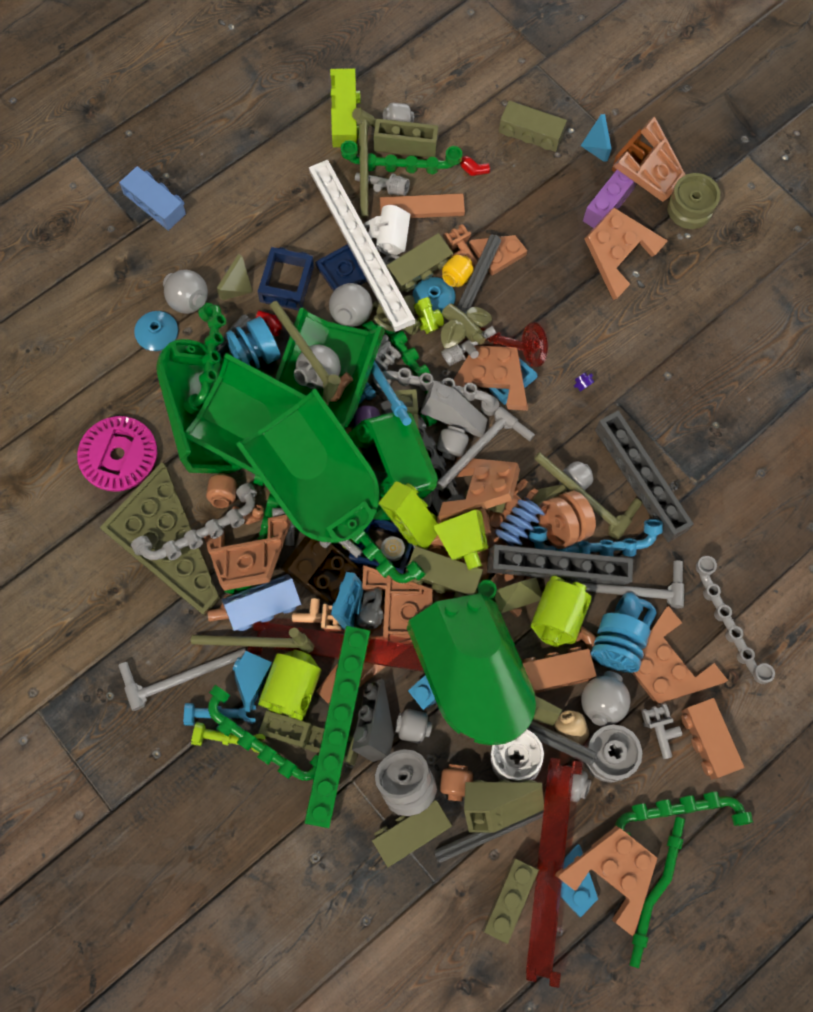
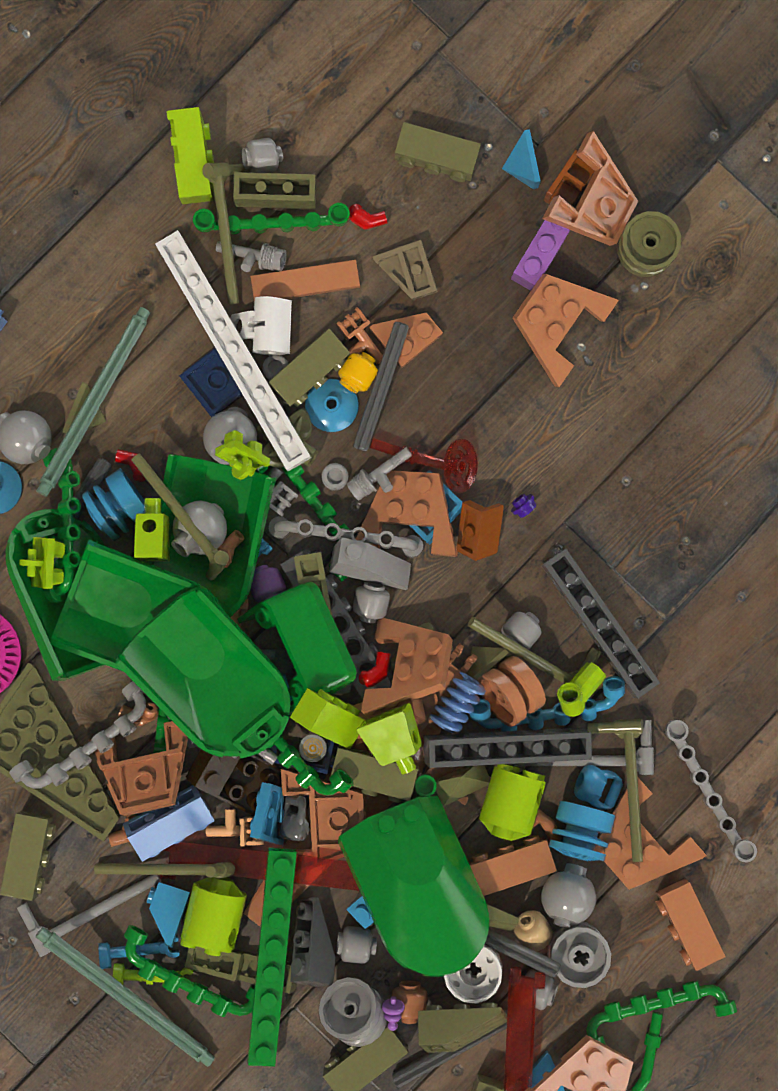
camera: 10 degrees left, 15 degrees up
(135, 620) = (27, 855): none -> olive brick
(184, 373) = (41, 562): none -> lime hips
(203, 749) = (125, 996): none -> sand green piece
(221, 490) = (104, 689): nougat head -> none
(243, 270) = (92, 402): none -> sand green piece
(279, 359) = (154, 544): none -> lime torso
(286, 298) = (144, 431): dark blue window -> none
(359, 310) = (240, 457): none -> lime hips
(398, 407) = (301, 585): dark azure bar -> none
(428, 319) = (329, 441): lime plate -> none
(431, 348) = (335, 476): none -> light grey tile
(441, 787) = (393, 1009): none -> medium lavender hair
(453, 493) = (378, 673): none -> red arm
(463, 325) = (372, 451): olive plant -> none
(503, 204) = (409, 269): none -> dark tan wing
(503, 419) = (430, 564): light grey bar -> none
(547, 394) = (479, 530): none -> dark orange panel
(623, 525) = (581, 688): none -> lime piece
(658, 723) = (628, 910): light grey arm -> none
(664, 566) = (628, 730): none -> olive bar

